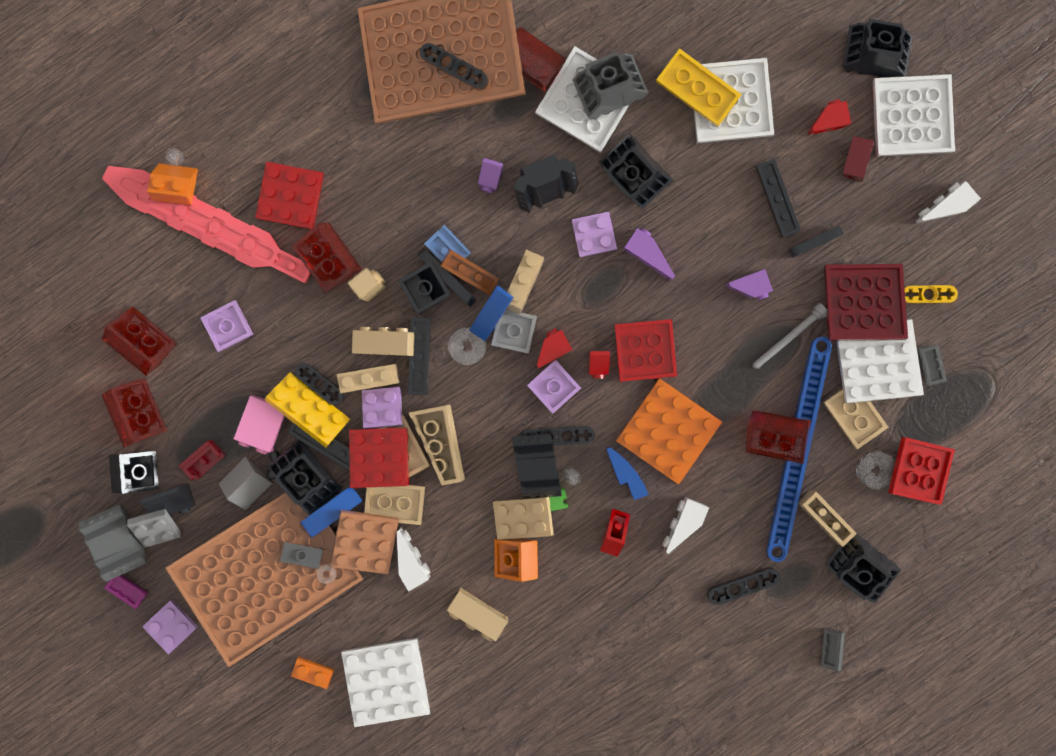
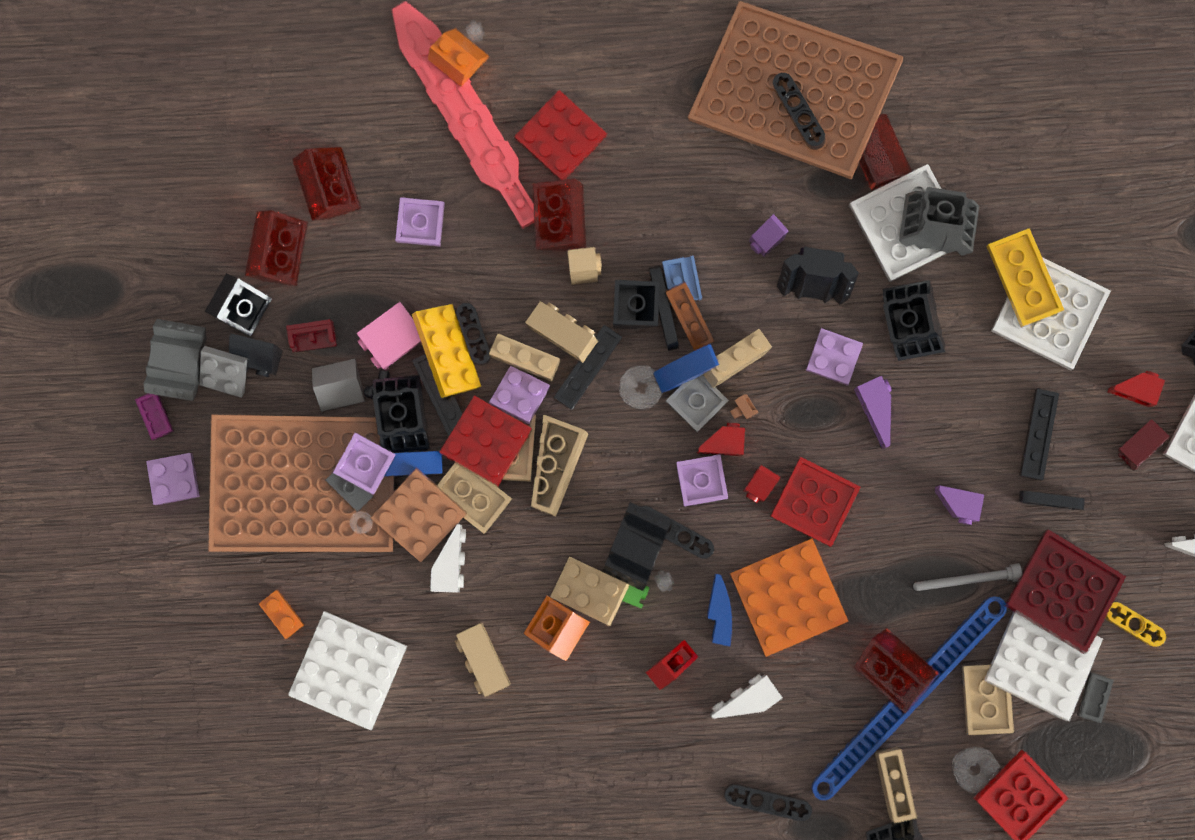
camera: 30 degrees right, 5 degrees down
(300, 532) = (364, 463): none -> lavender plate
(551, 313) = (745, 407): none -> nougat tile

